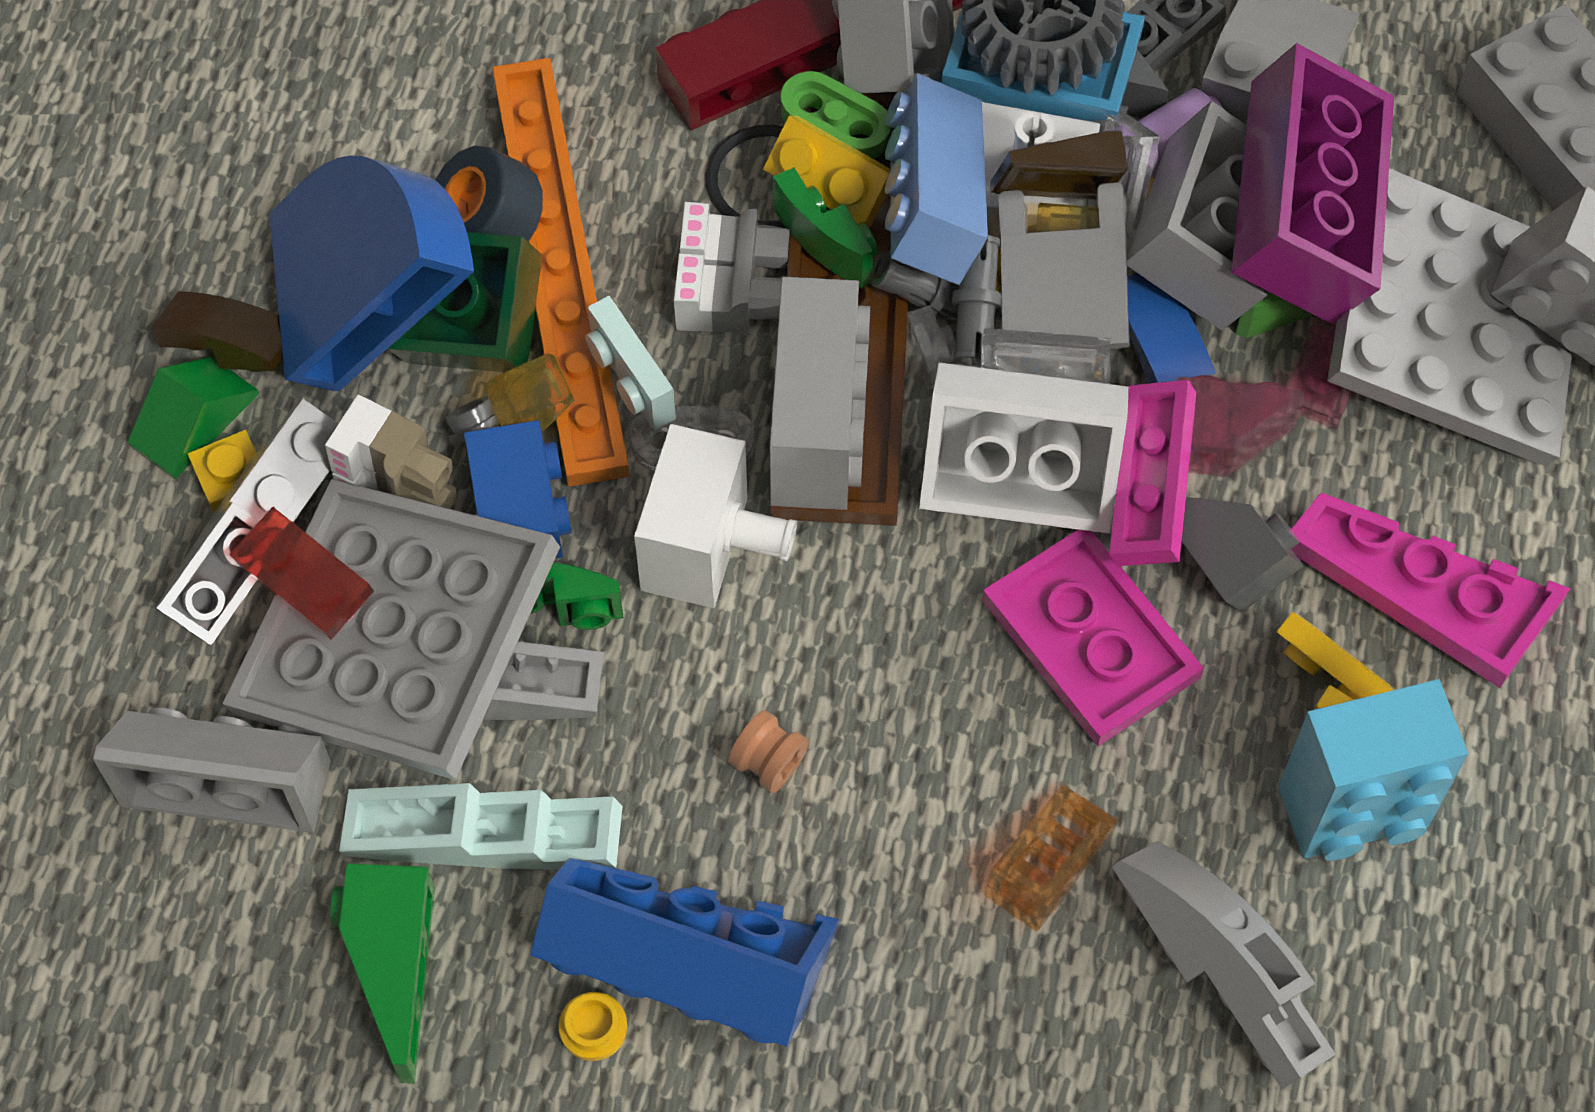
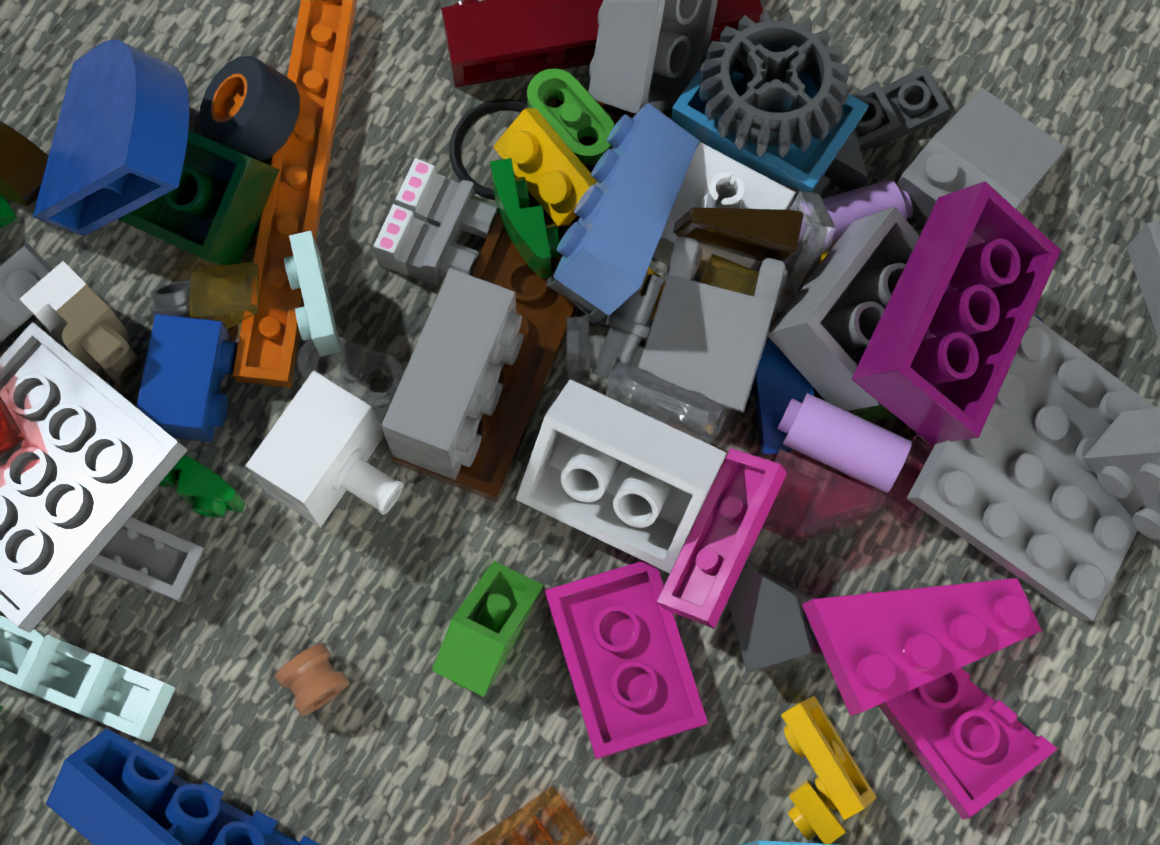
camera: 15 degrees right, 10 degrees up
(935, 649) = (486, 628): none -> bright green slope
(1242, 348) = (844, 441): none -> lavender brick
(1384, 515) = (909, 637): none -> dark pink wing

